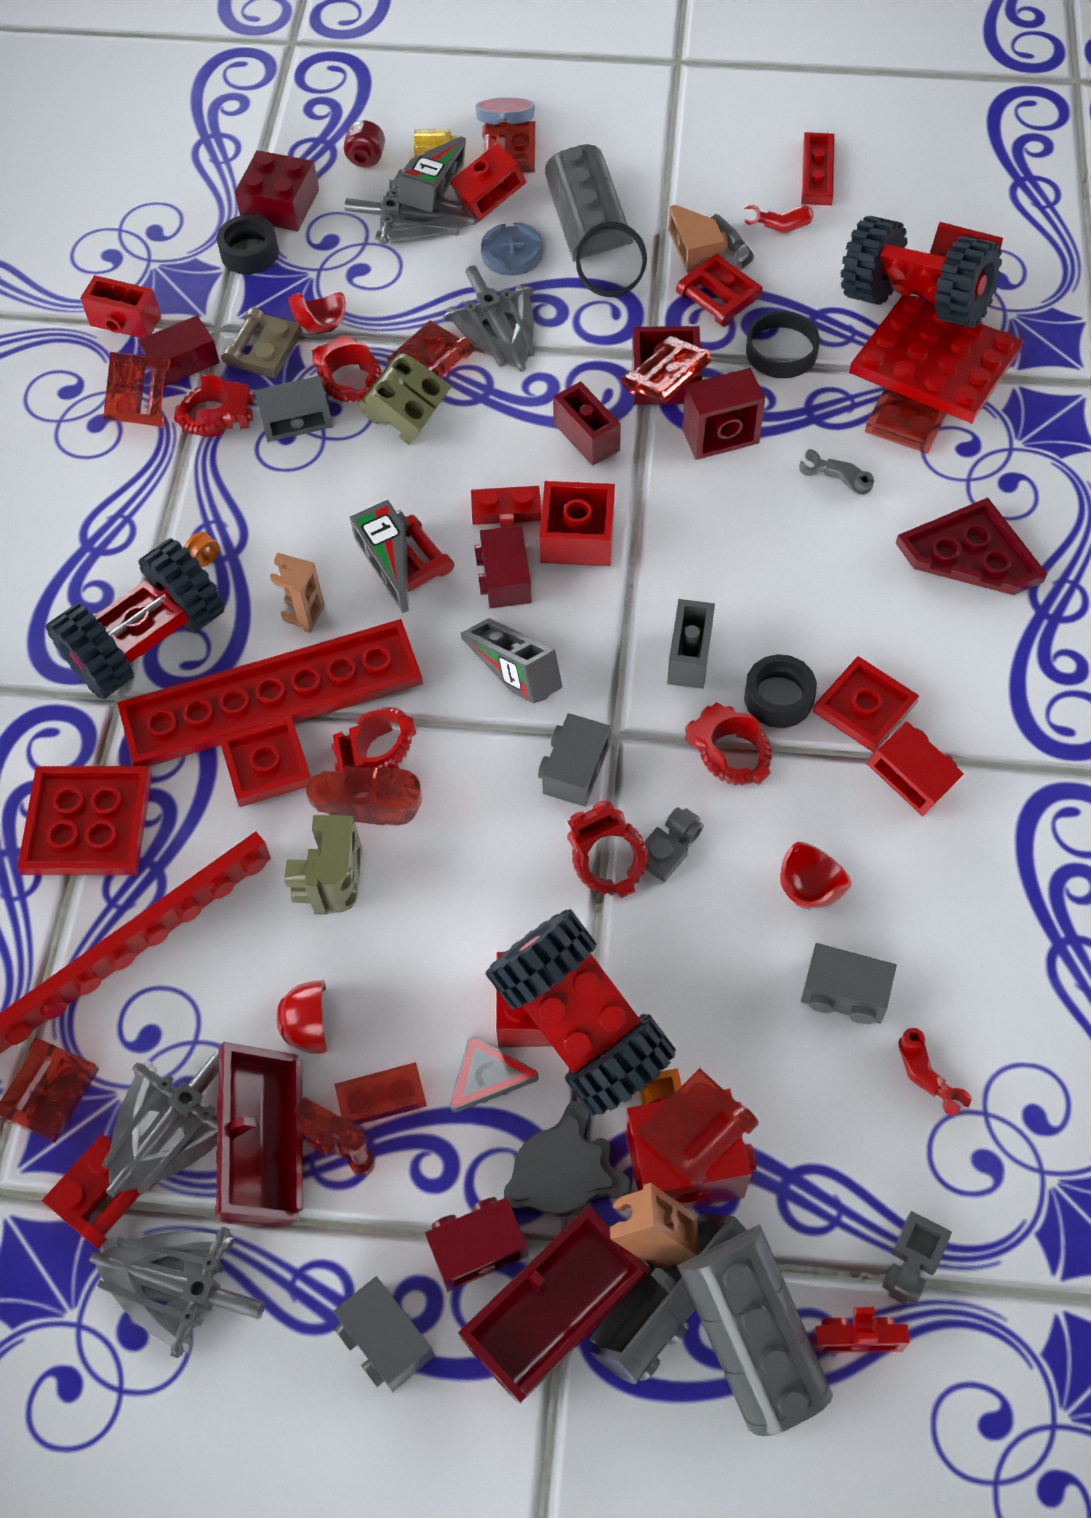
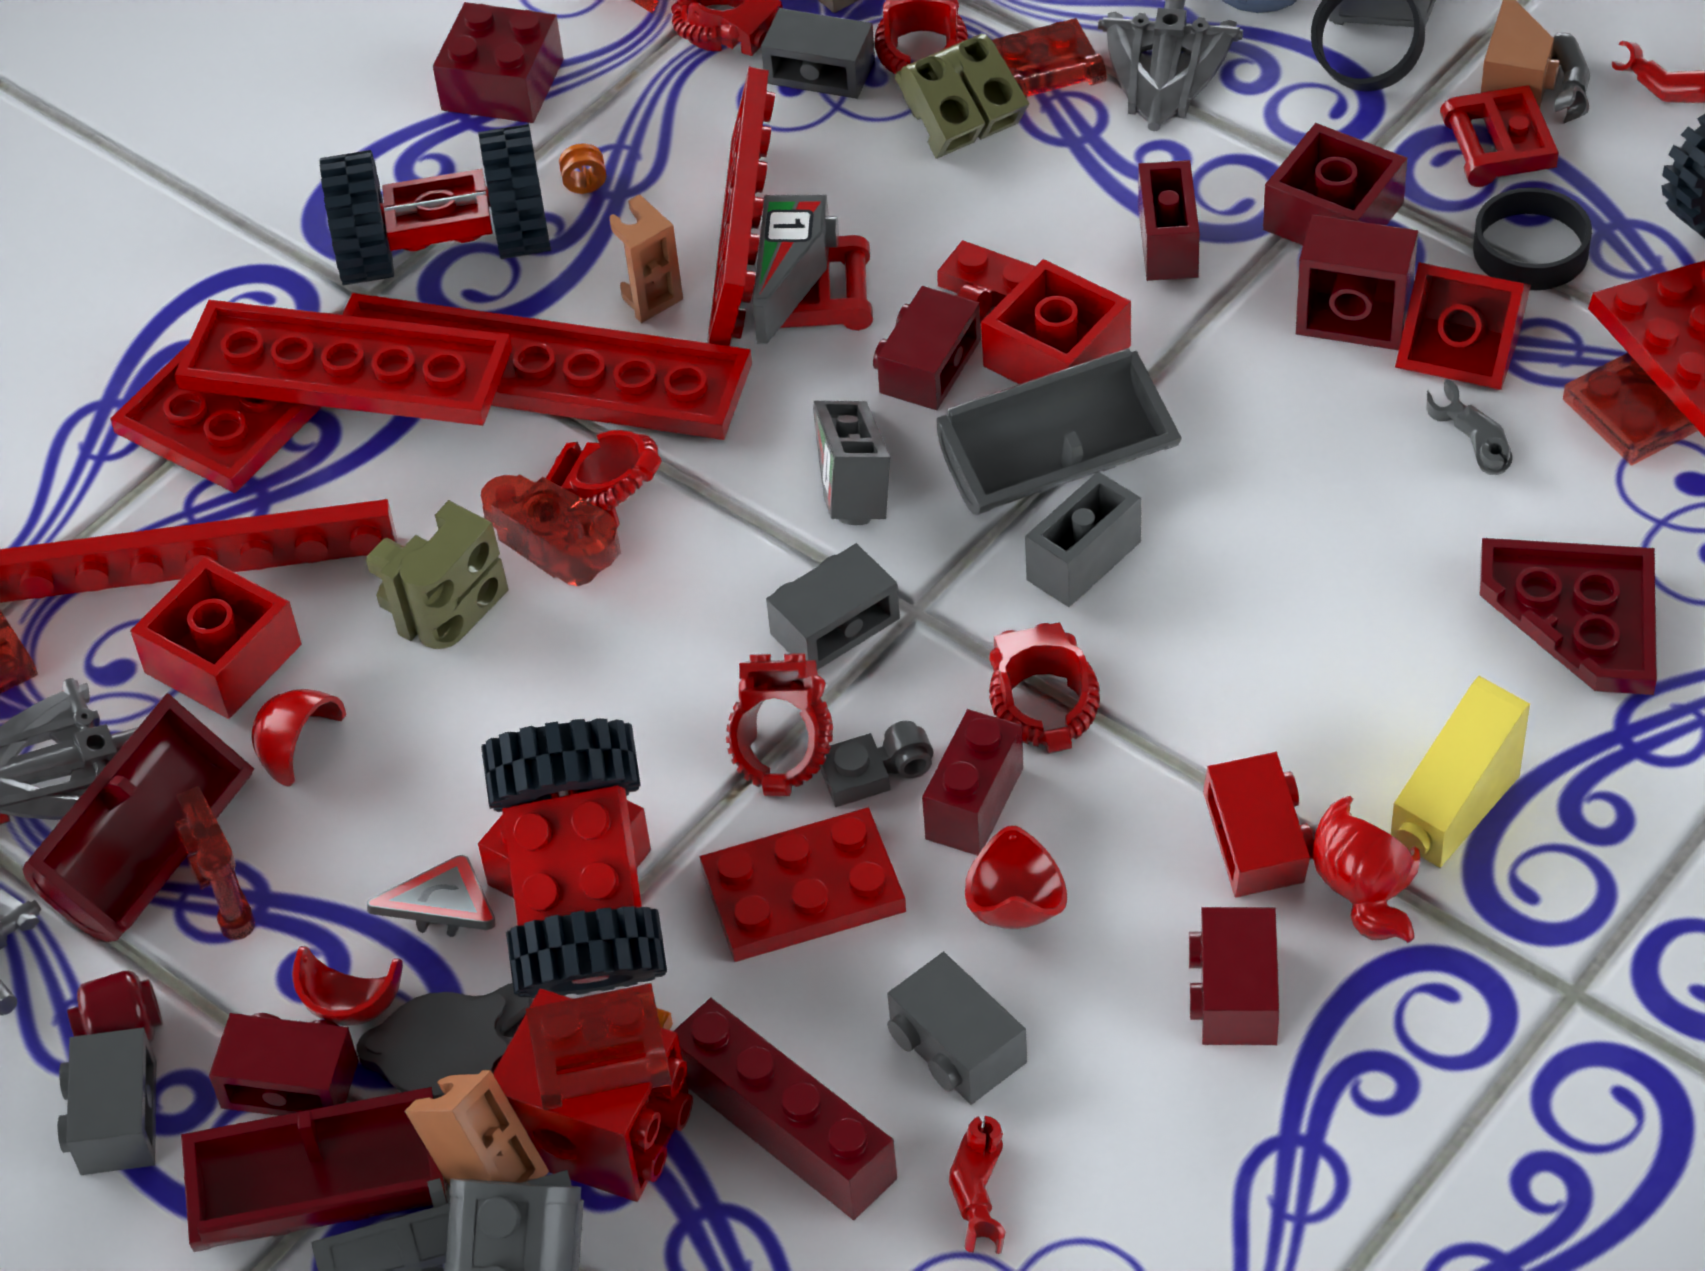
camera: 35 degrees right, 10 degrees down
(93, 503) = (498, 62): none -> dark red brick
(152, 753) = (344, 362): none -> red plate
(211, 982) = (216, 637): none -> red brick
(265, 761) = (467, 451): red plate -> none
(332, 533) = (741, 210): none -> red plate
(338, 1272) = (115, 1005): none -> dark red head
(380, 1094) = (308, 857): clear red plate -> none
(482, 1172) = (340, 996): none -> red helmet
(624, 587) = (1054, 430): none -> dark grey container
(667, 369) = (1305, 189): clear red plate -> none
(686, 942) = (802, 884): none -> red plate
(742, 826) = (973, 782): none -> dark red brick
(783, 667) = (1161, 619): black tyre -> none
(794, 413) = (1462, 325): none -> red slope
(800, 1091) = (786, 1109): none -> dark red brick
(865, 704) = (1265, 714): red plate -> none
(971, 864) = (1237, 976): none -> dark red brick
(992, 764) = (1366, 870): none -> red hair
(999, 680) = (1462, 772): none -> light yellow slope

